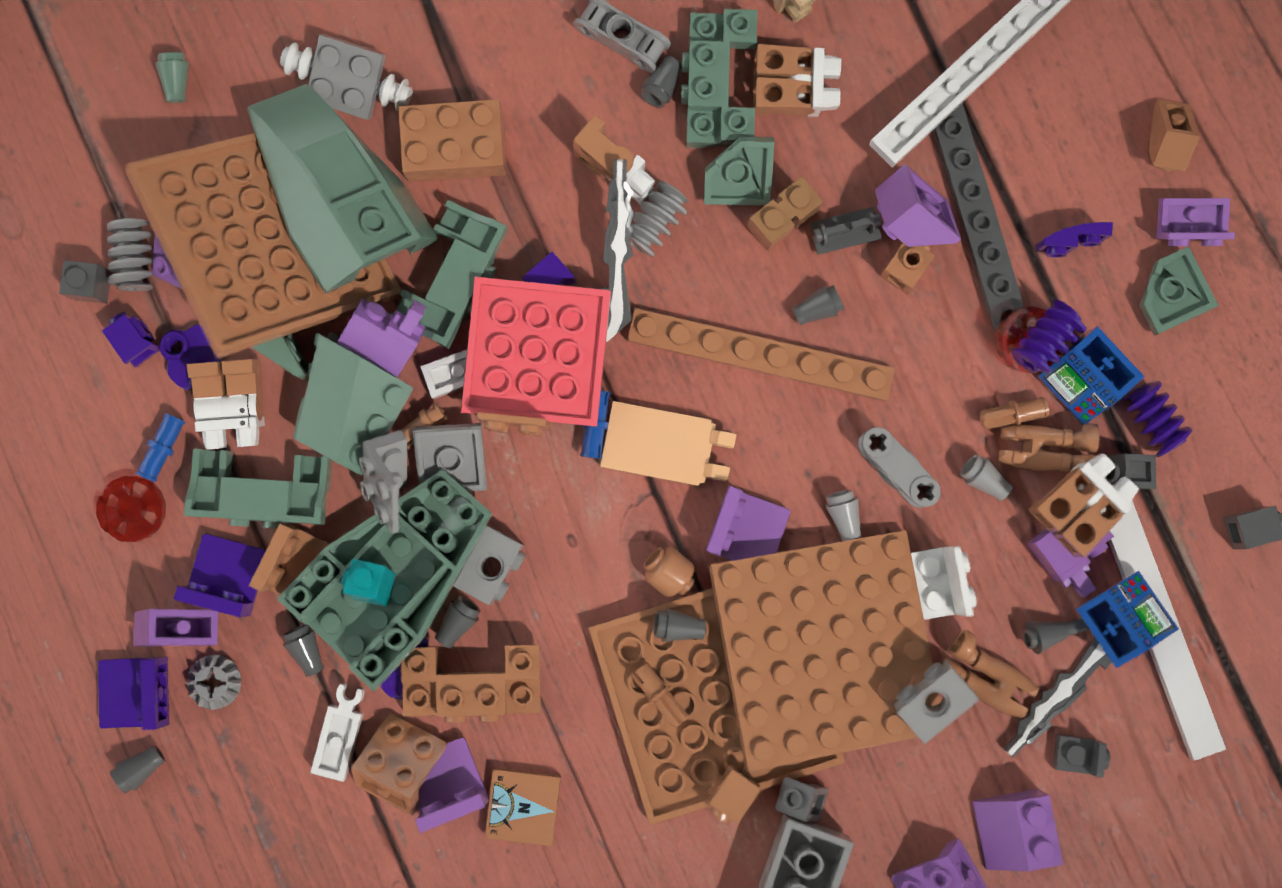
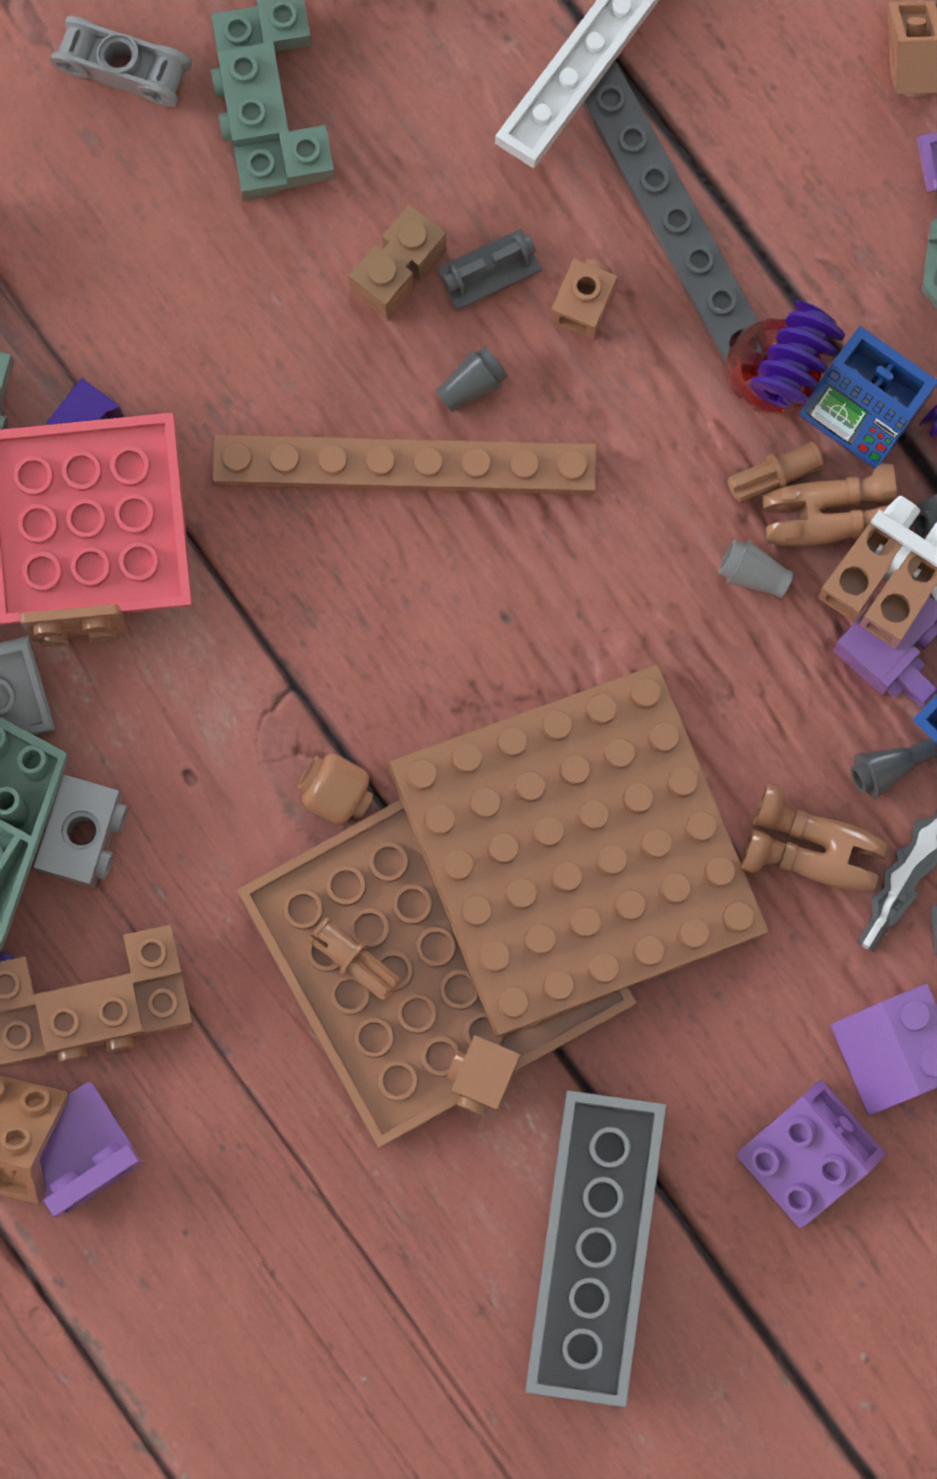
camera: 10 degrees left, 5 degrees down
(457, 621) = (49, 919): dark grey cone -> none
(522, 807) = (193, 1163): nougat tile -> none
(594, 435) = (192, 620): blue pin -> none
(598, 152) = (142, 239): nougat hips -> none
(617, 247) = (173, 354): sword -> none
(656, 216) = (217, 304): light grey piece -> none
(661, 83) = (189, 120): dark grey cone -> none
(663, 445) = (293, 616): light nougat tile -> none
(677, 626) = (360, 858): dark grey cone -> none
(741, 173) = (325, 219): sand green plate -> none
(746, 527) = (430, 702): medium lavender bracket -> none
(793, 81) = (372, 79): nougat hips -> none
(801, 800) = (586, 1066): dark grey bracket -> none
(845, 513) = (567, 659): light grey cone -> none
(899, 468) = (628, 579): light grey piece -> none
(915, 211) = (577, 220): medium lavender slope -> none
(930, 720) = (731, 912): light grey brick -> none
(943, 582) = (720, 725): white bracket -> none
(1066, 240) = (794, 221): dark purple slope -> none

